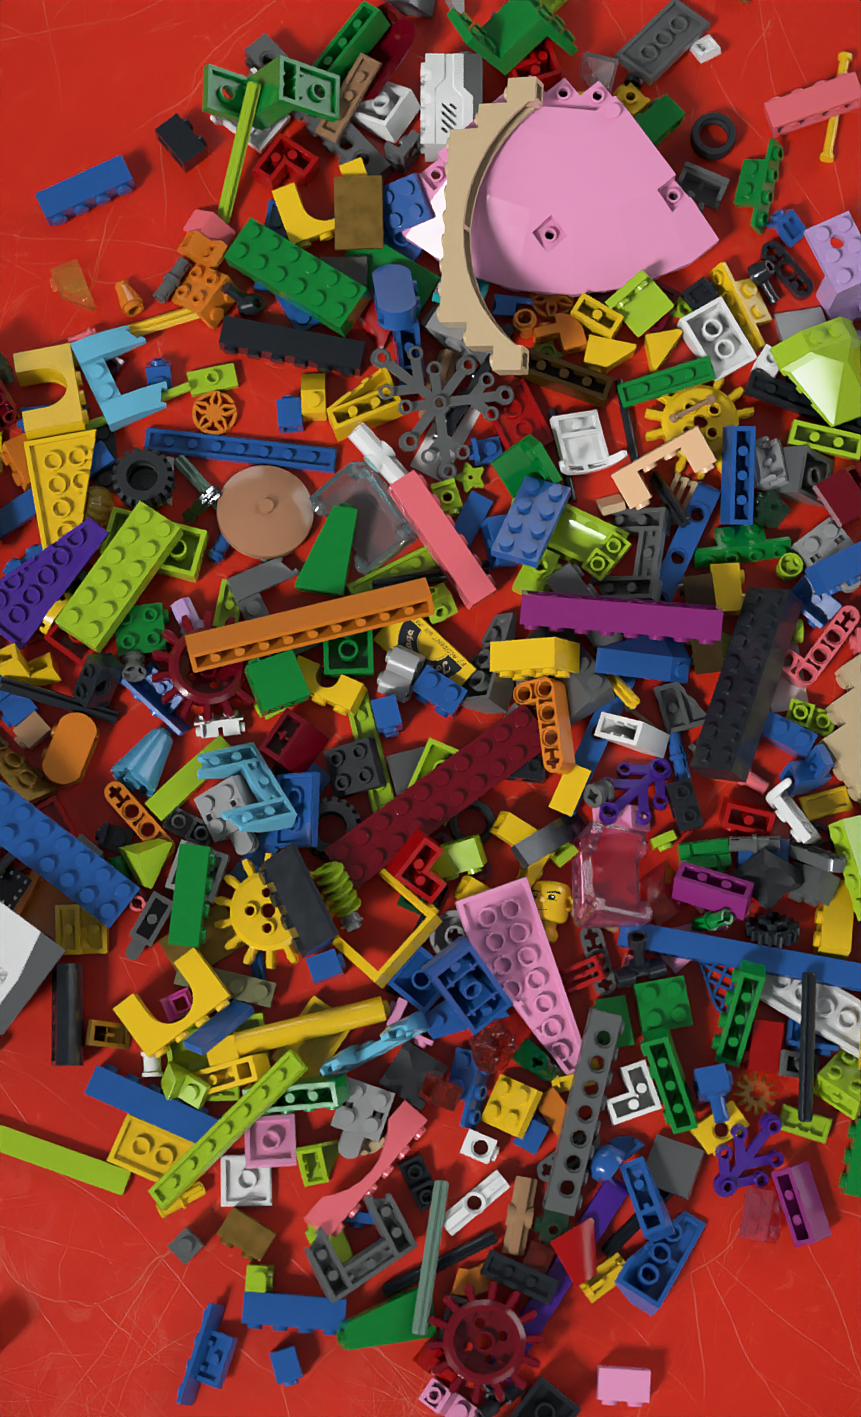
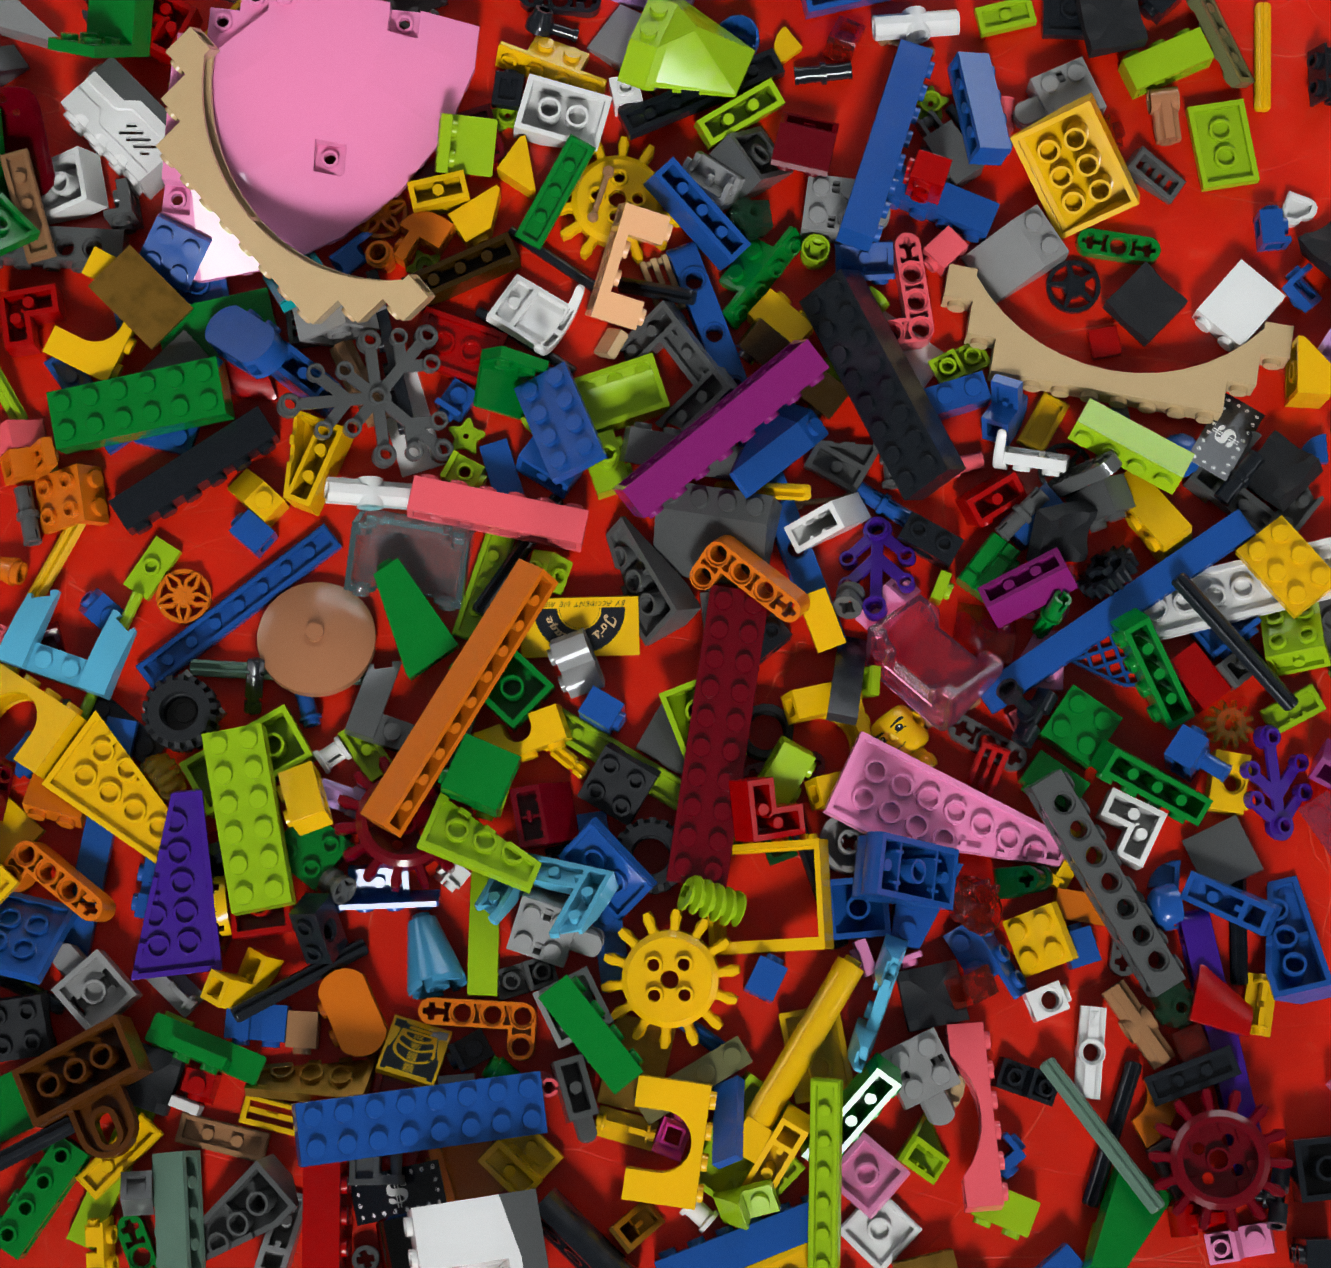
camera: 45 degrees left, 0 degrees up
(82, 806) = (413, 1051): none -> tile
(146, 859) = (519, 1041): lime slope -> none
(159, 971) = (625, 1128): none -> yellow hinge
(163, 597) = (304, 798): none -> yellow brick
(206, 588) = (332, 754): none -> white bush
(230, 714) = (468, 843): none -> lime wing
(247, 304) = (117, 471): black bar -> none
(298, 901) = (692, 944): black slope -> none
(341, 728) = (570, 761): none -> yellow axle
(351, 921) = (752, 917): dark grey plate -> none
(395, 1242) = (1047, 1230): dark grey wedge -> none
(439, 691) = (625, 647): blue bracket -> none
(535, 658) = (683, 536): yellow brick -> none
(606, 556) = (653, 390): lime slope -> none

